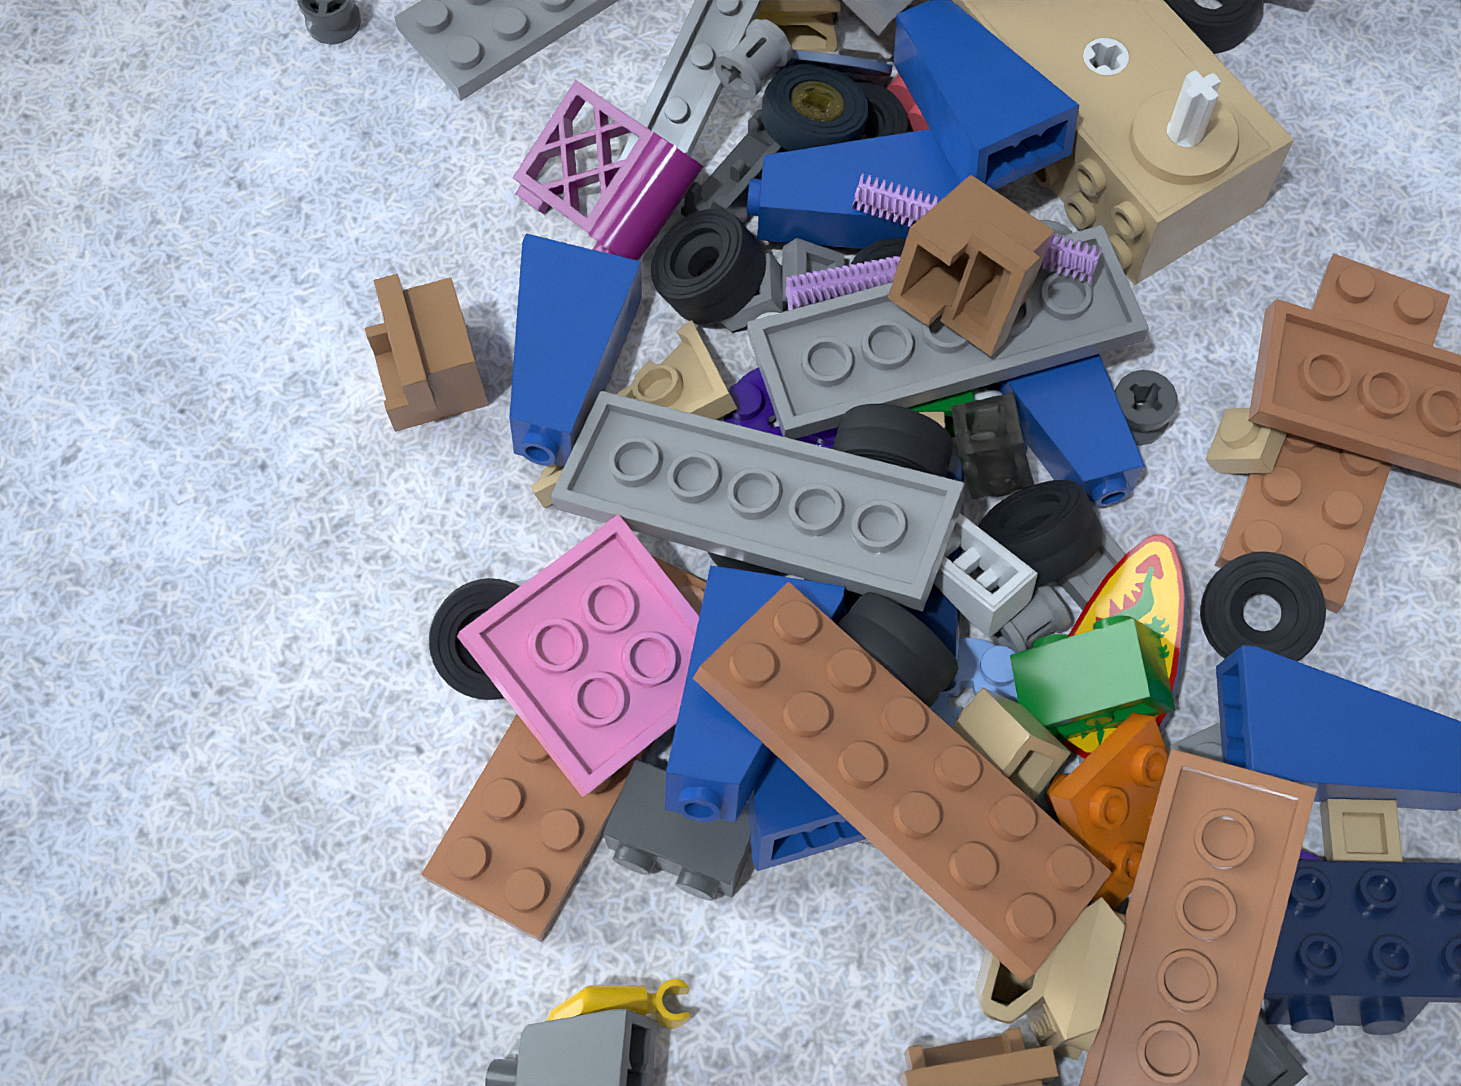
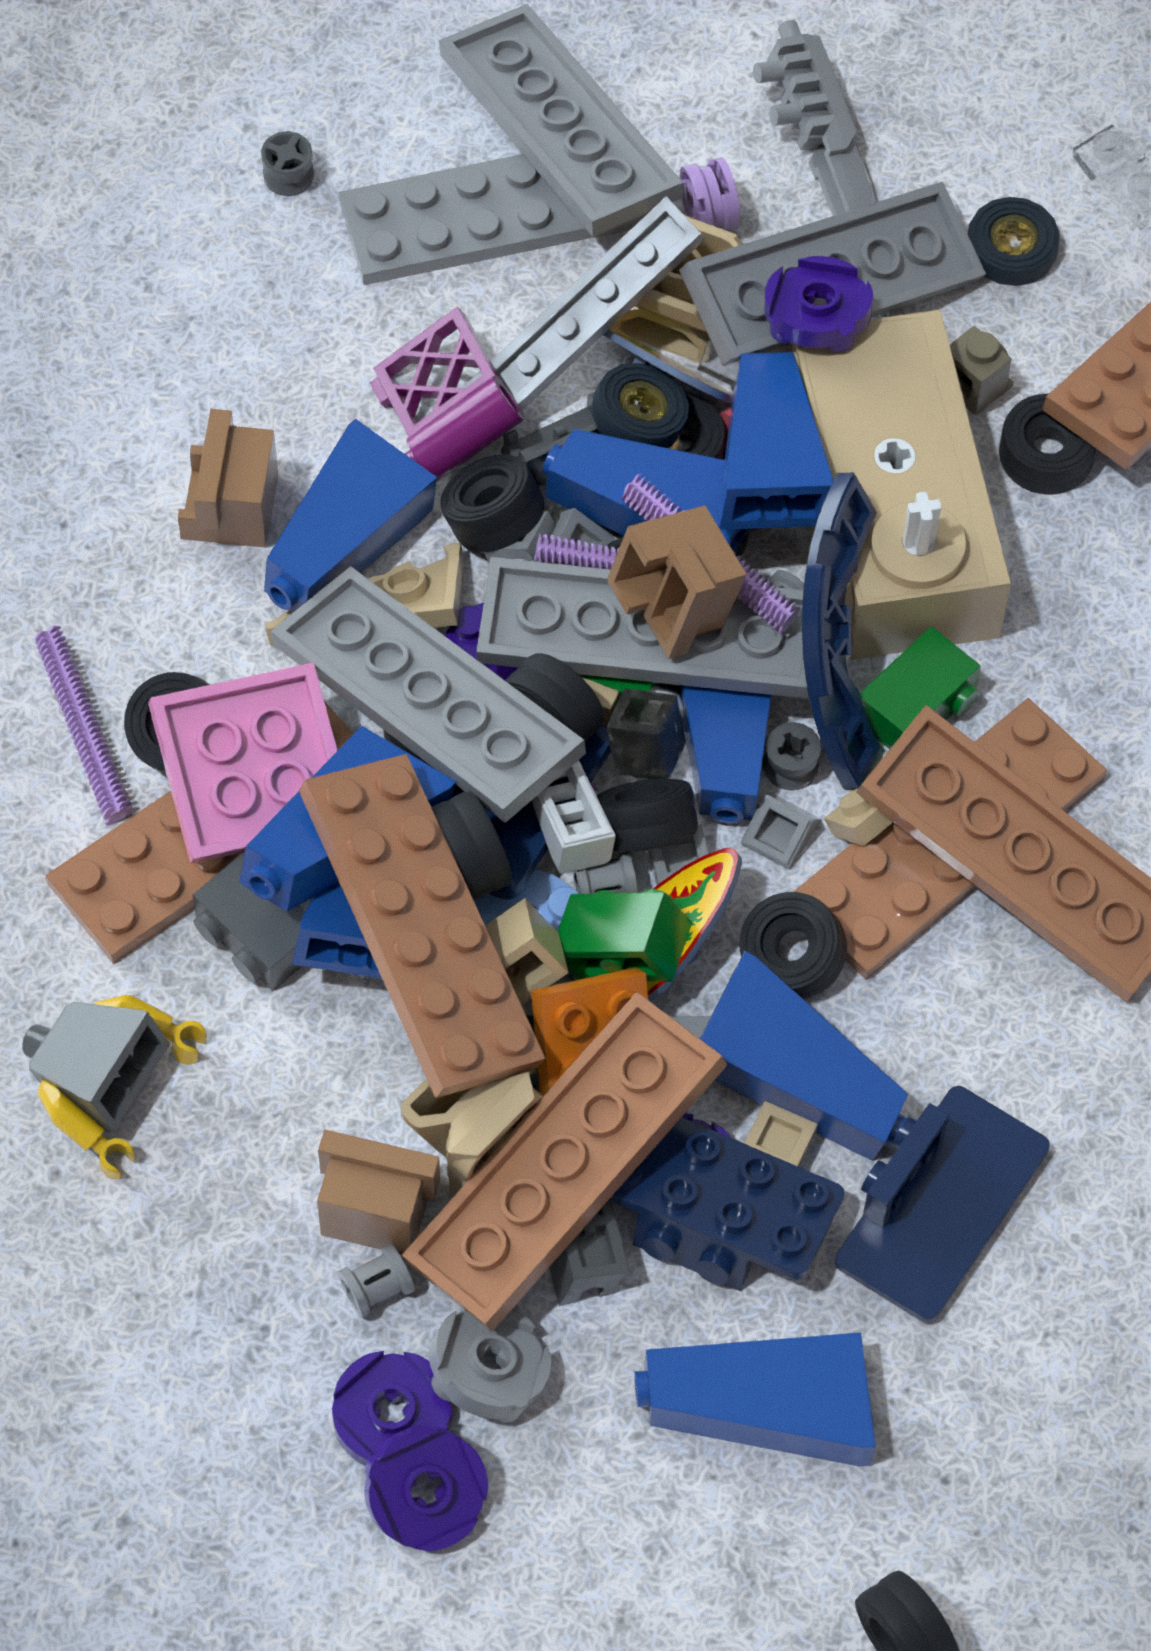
camera: 20 degrees right, 5 degrees down
(385, 681) = (82, 725): none -> lavender axle
(753, 58) = (603, 346): light grey bush -> none
(1140, 253) = (827, 630): none -> dark blue tile
(1168, 491) = (779, 830): none -> light grey slope
(1231, 291) = (927, 674): none -> green brick

